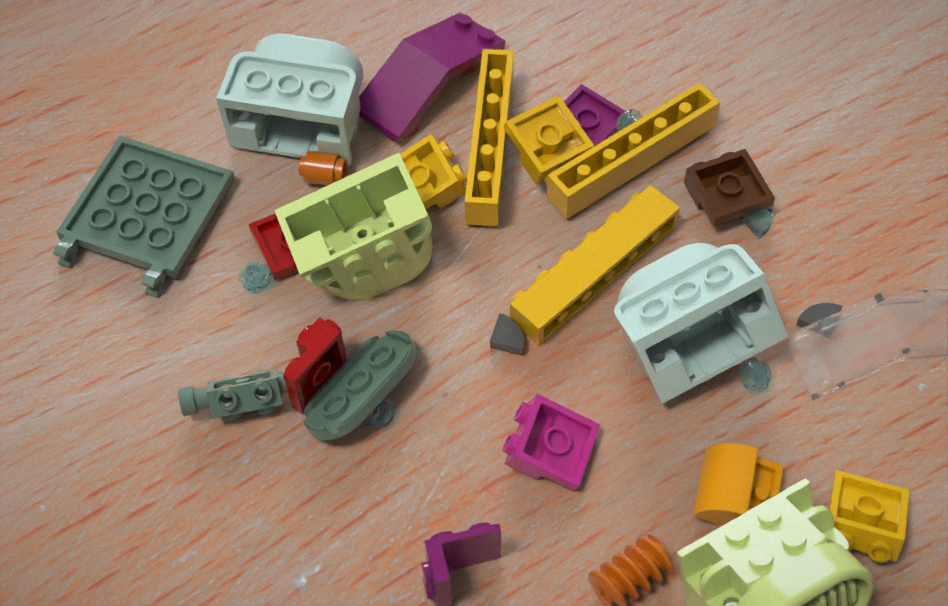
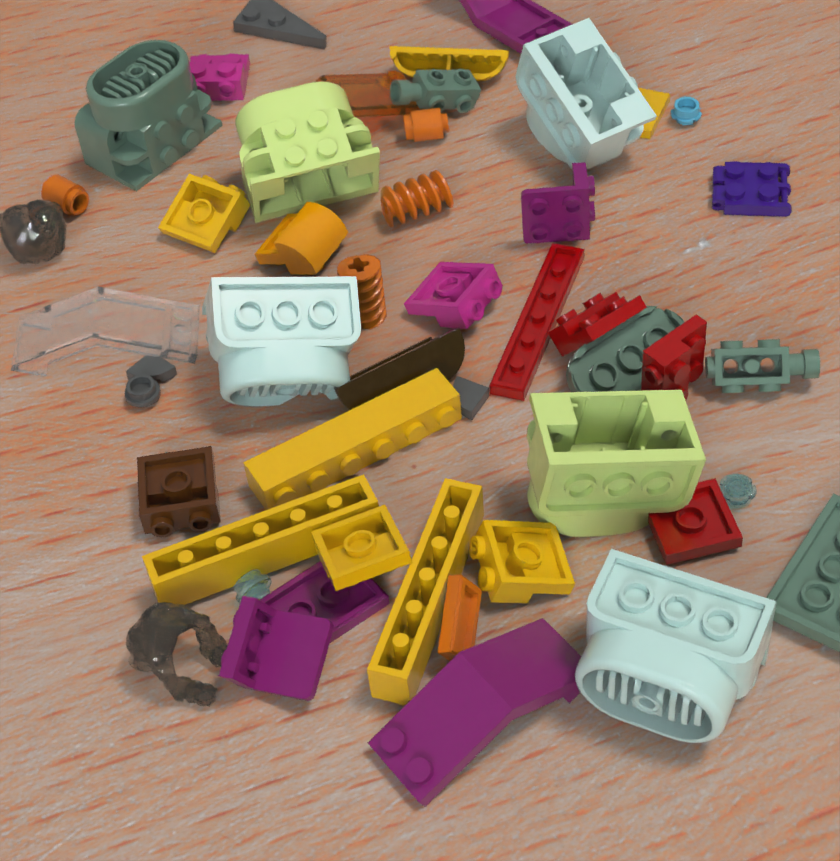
camera: 165 degrees left, 10 degrees down
(396, 408) = (597, 319): none -> red plate
(459, 117) = (459, 616): none -> orange tile
(460, 439) = (537, 318): none -> red tile
(575, 341) = (443, 353): none -> dark brown brick
(588, 77) = (276, 650): none -> magenta bracket
(642, 409) = (370, 287): none -> orange piece
(671, 59) = (154, 640): none -> clear smoke hair
(815, 289) = (142, 391): none -> dark grey plate

